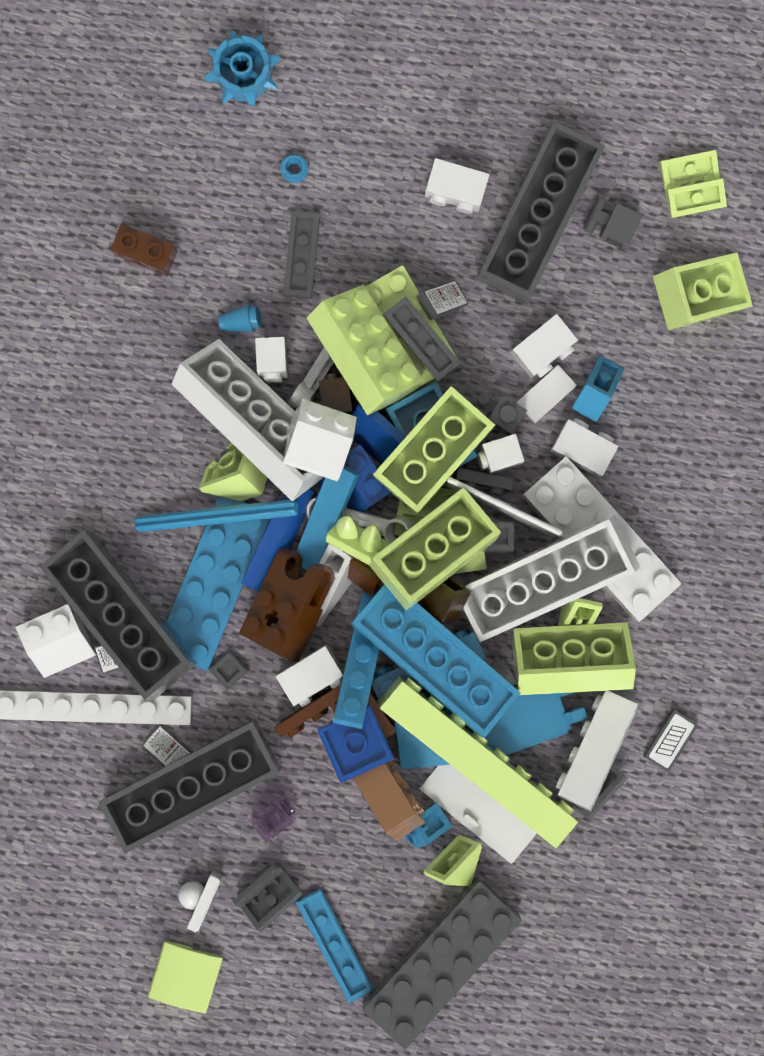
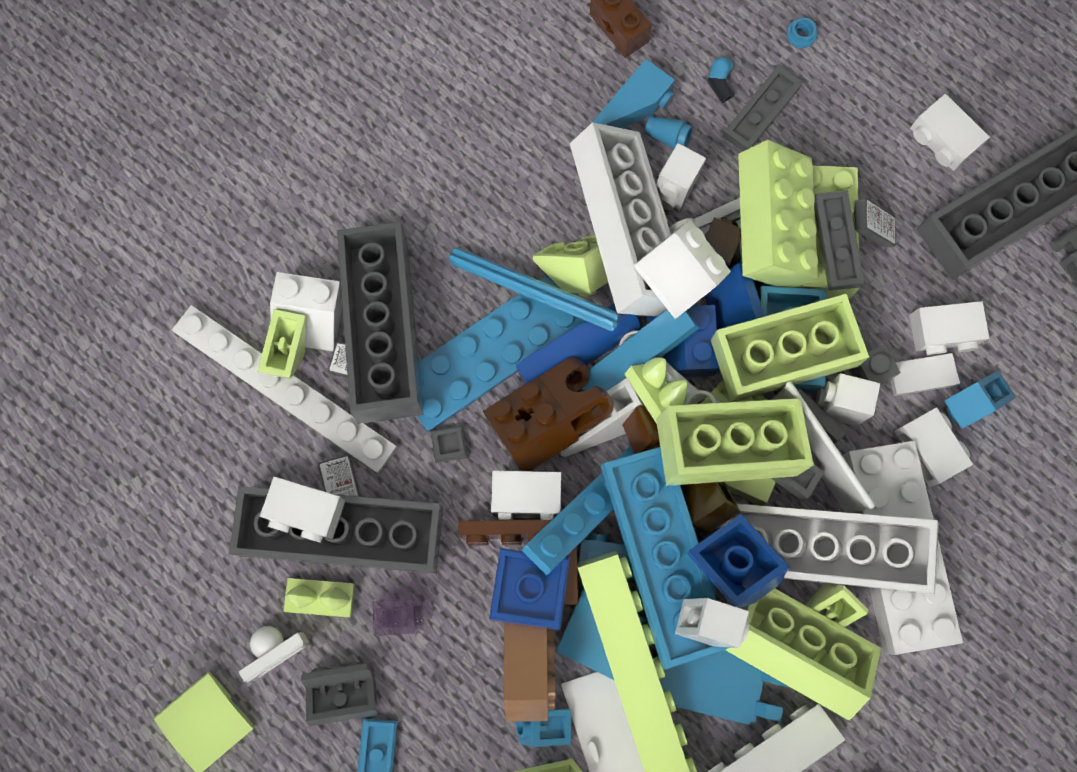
camera: 35 degrees right, 10 degrees down
(58, 677) = (284, 344): none -> yellowish green slope
(157, 790) = (302, 508): none -> white brick
(199, 308) = (638, 97): none -> dark azure slope
(208, 839) = (319, 597): none -> yellowish green tile
(250, 248) = (718, 76): none -> arm
(490, 634) = (739, 562): none -> blue slope
(496, 689) = (713, 623): none -> white brick

